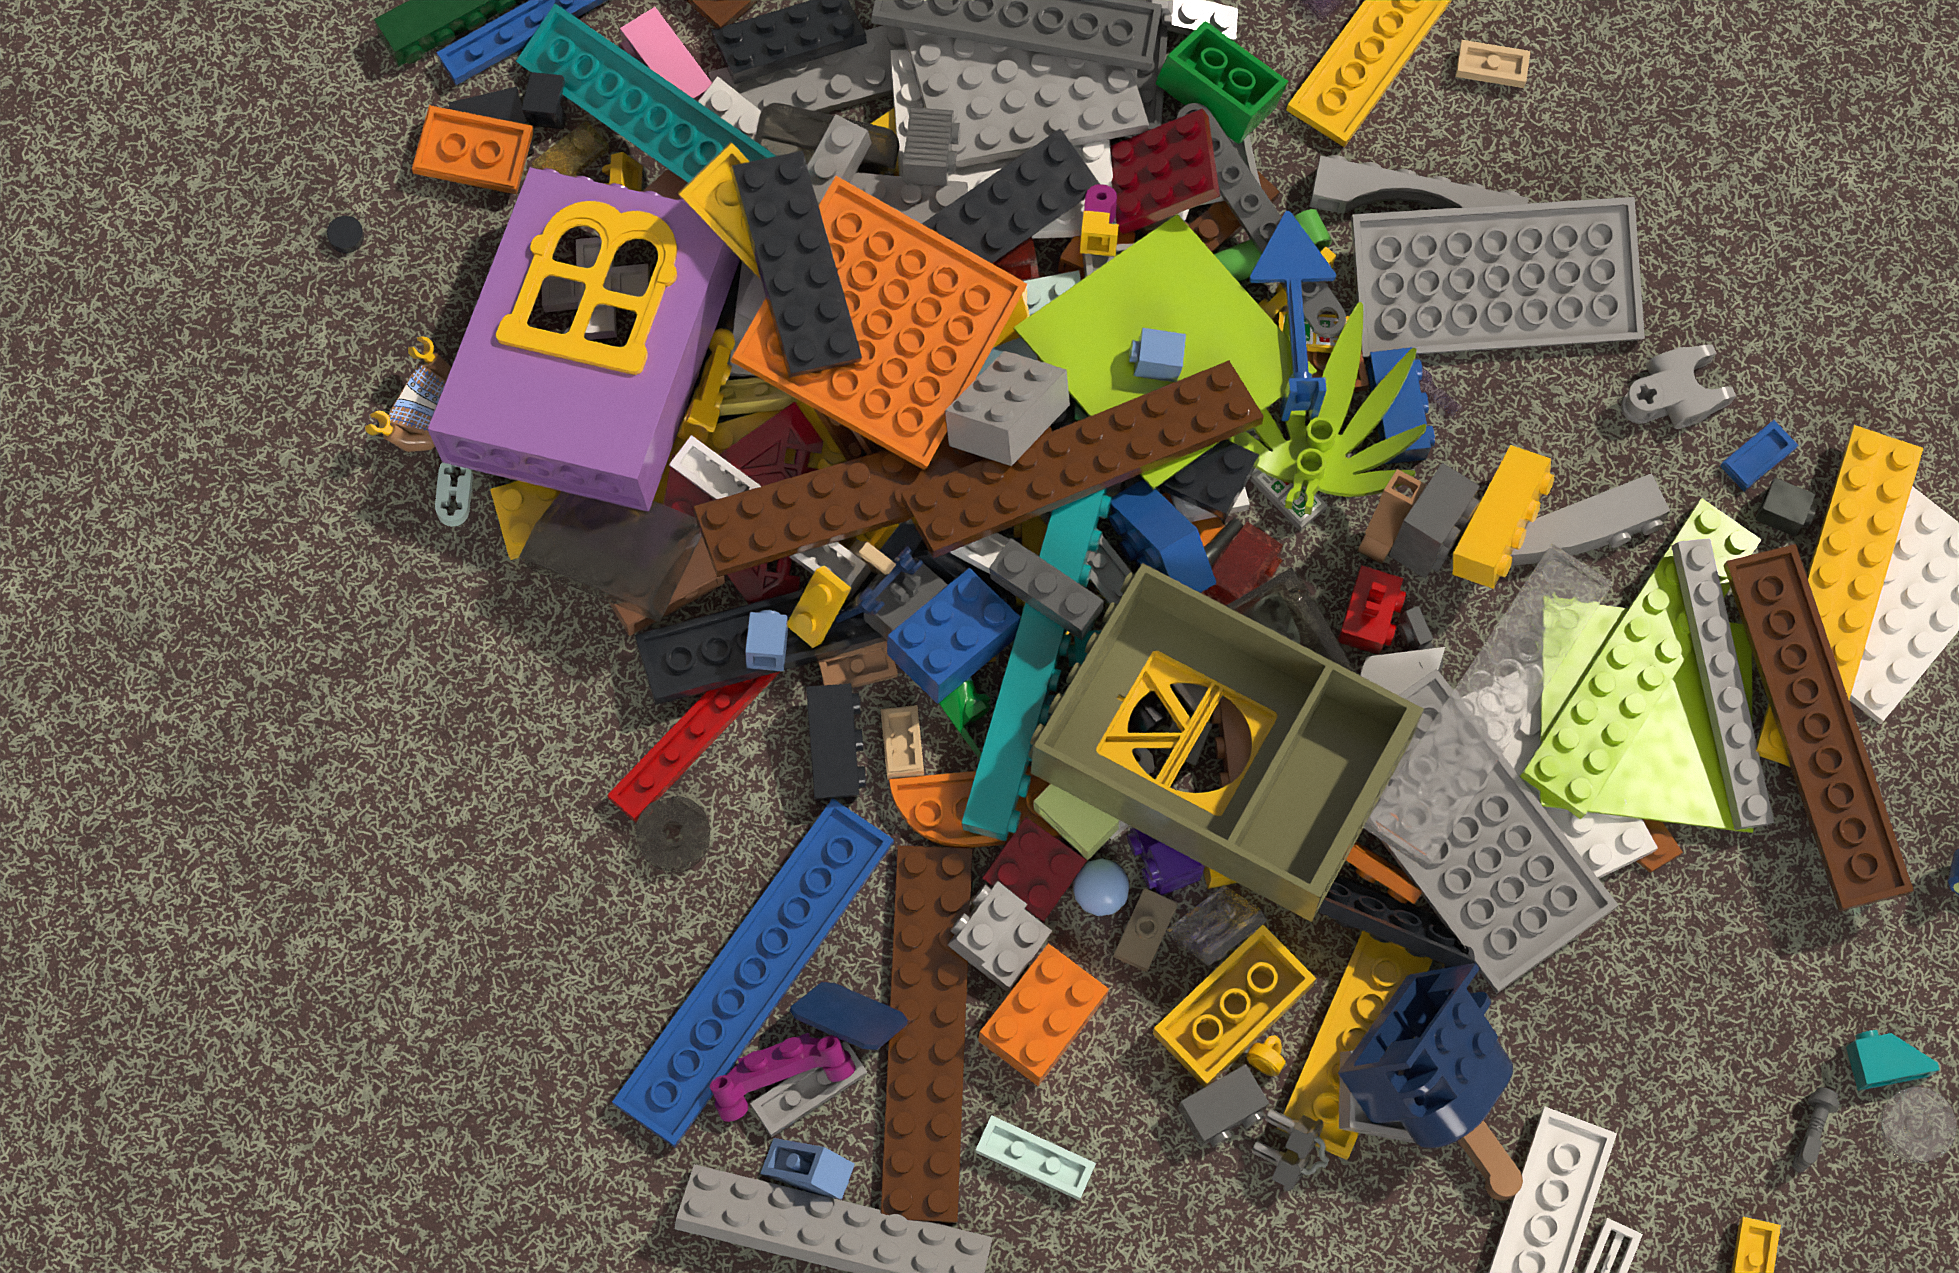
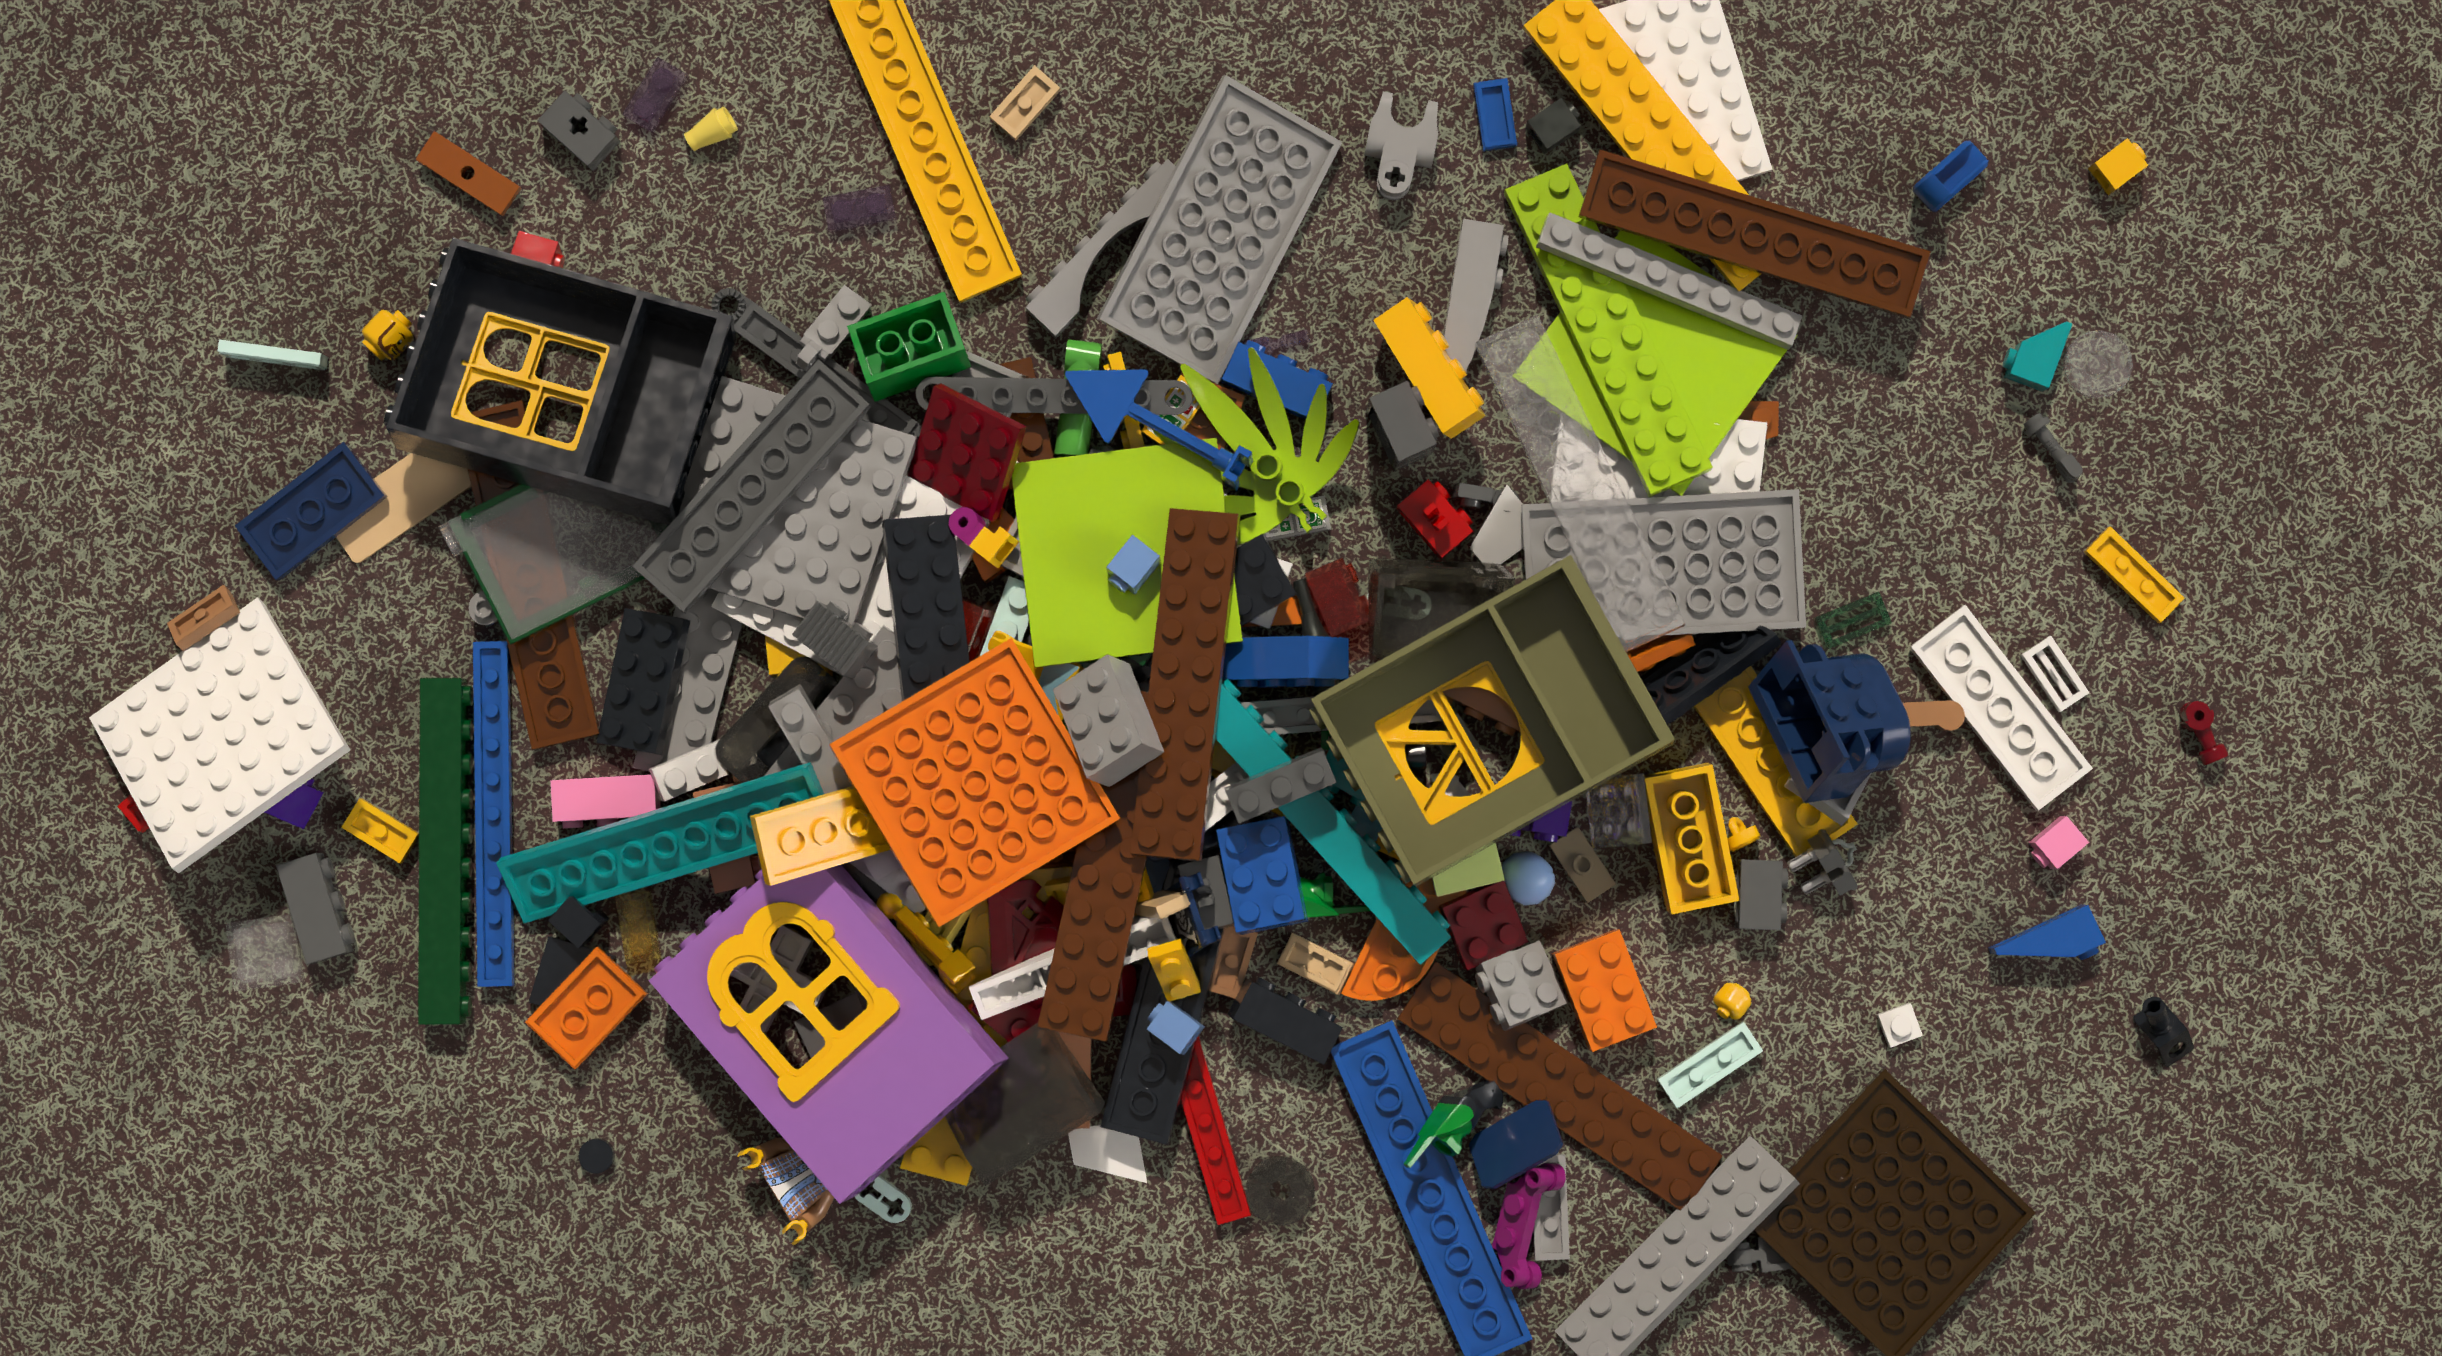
camera: 50 degrees left, 15 degrees up
(615, 665) = (1108, 1152): none -> white sticker
(624, 171) = (687, 895): yellow tile -> none
(796, 264) = (889, 826): black plate -> none
(808, 1168) = (1612, 1246): medium blue slope -> none
(840, 949) = (1455, 1118): none -> green animal
(1108, 1146) = (1732, 1001): none -> yellow piece
(1389, 516) = (1374, 456): medium nougat leg -> none
(1526, 1055) = (1825, 631): none -> clear green tile

